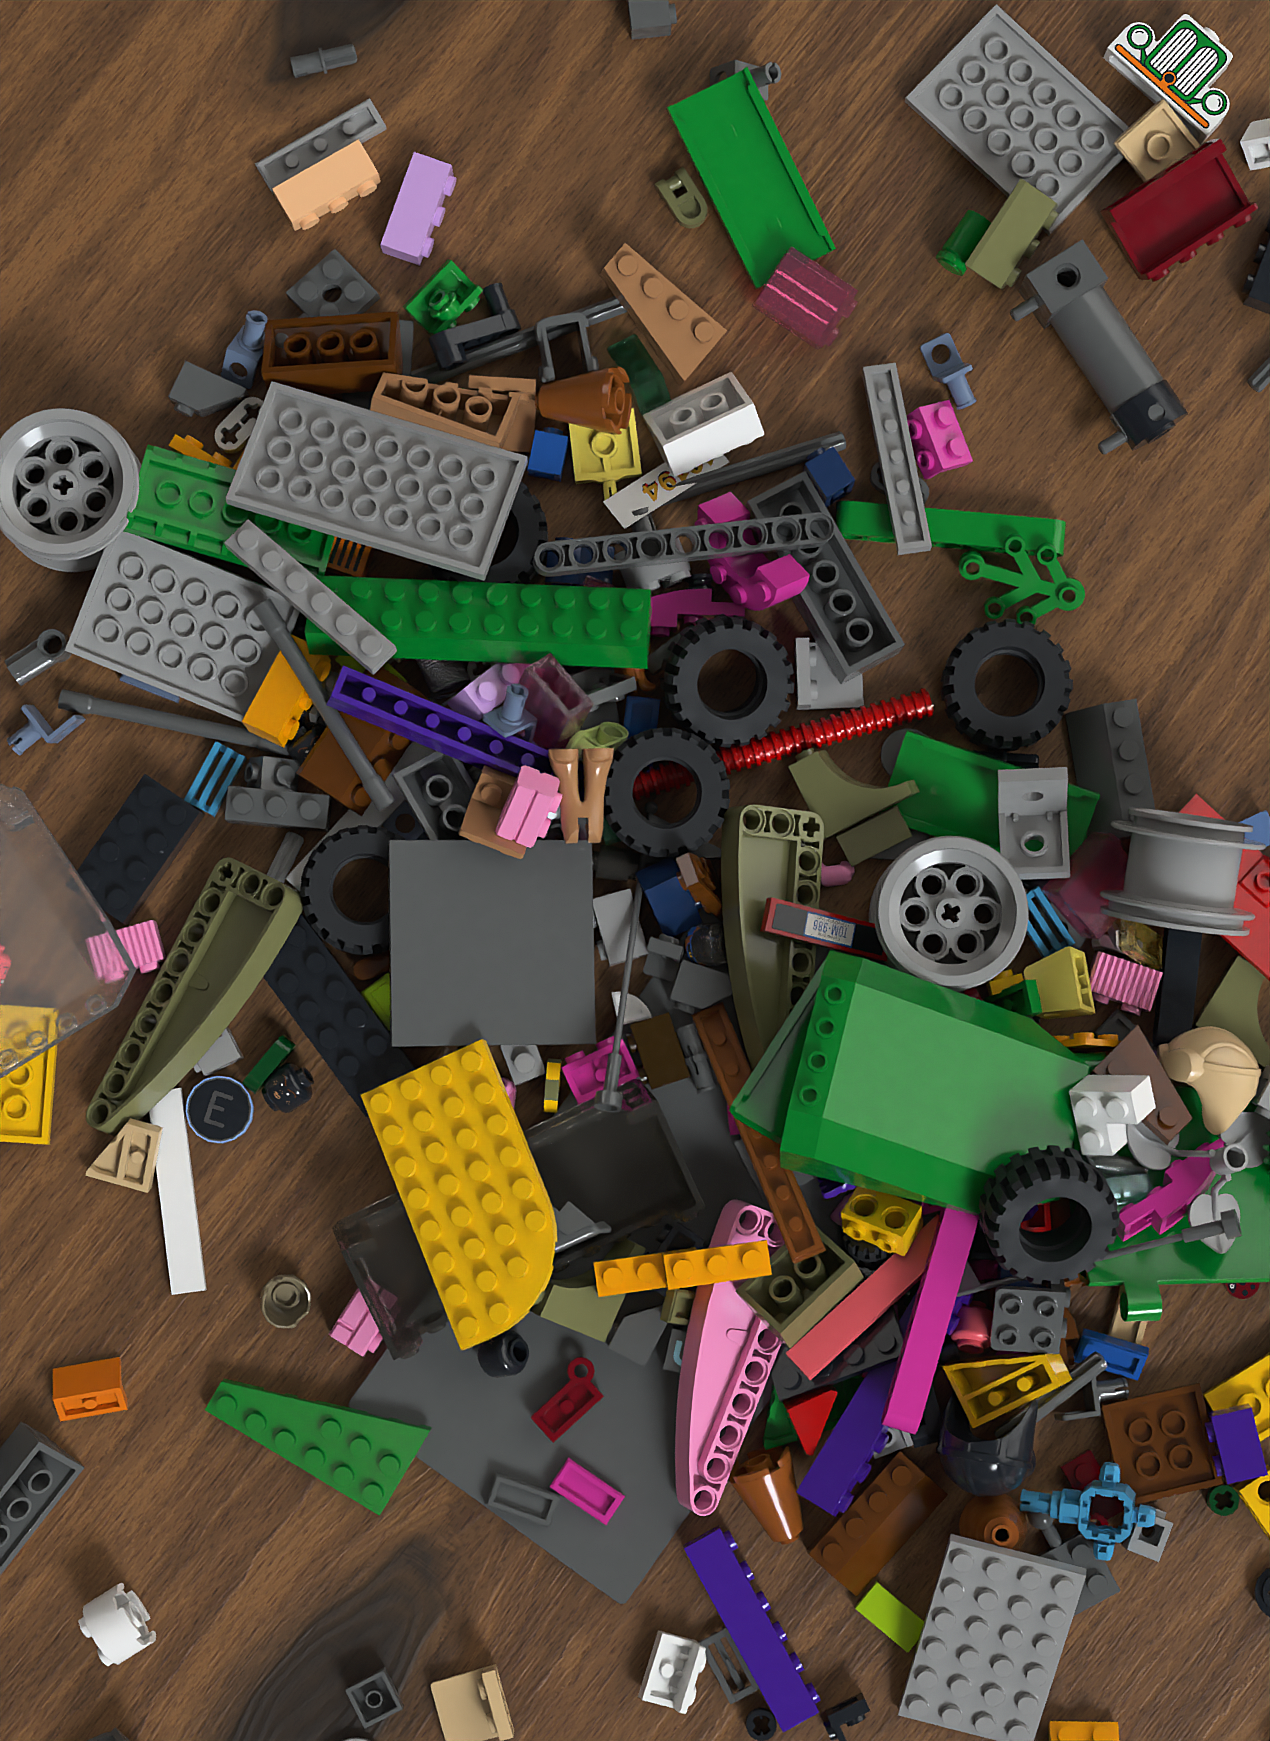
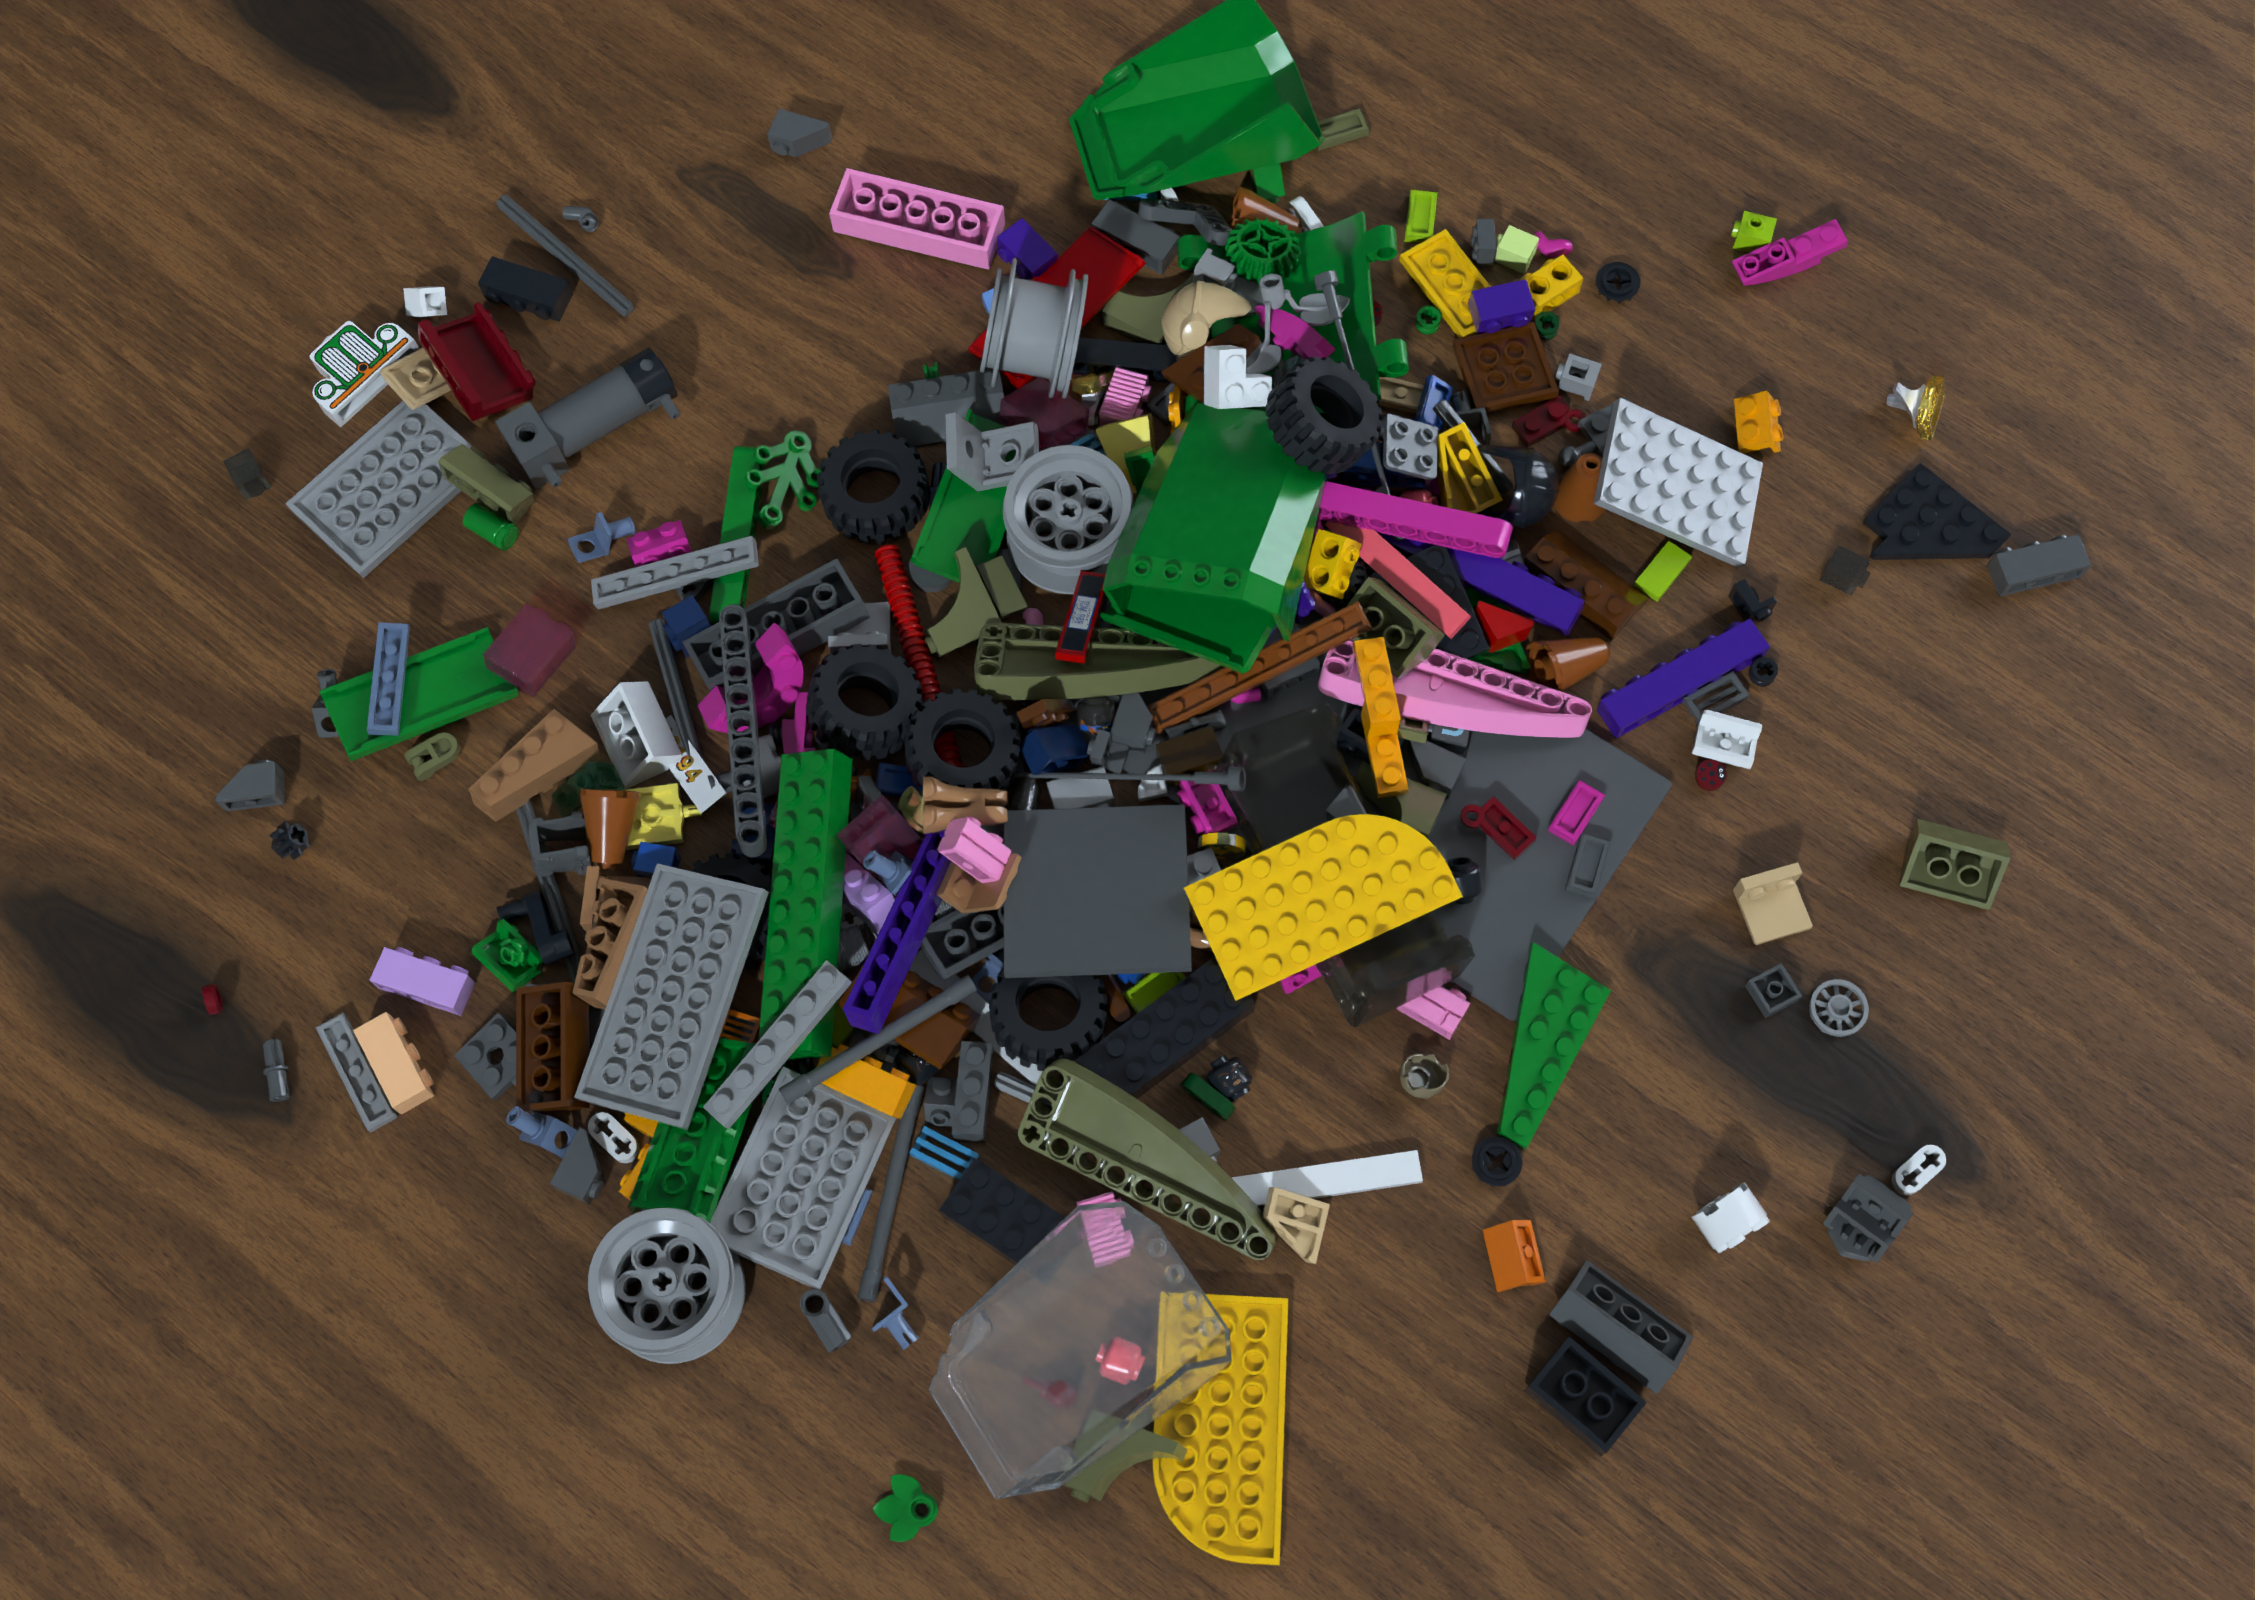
camera: 85 degrees left, 15 degrees down
(174, 1376) = (1494, 1147): none -> black gear
(219, 1109) = (1250, 1142): black tile -> none
(581, 50) = (289, 840): none -> black gear
(634, 1650) = (1710, 775): none -> dark red tile
(762, 143) = (388, 679): none -> sand blue piece
(1074, 1508) = (1562, 425): dark azure piece -> none
(1159, 751) = (931, 371): none -> green bush
(1237, 1362) = (1428, 311): none -> green bush

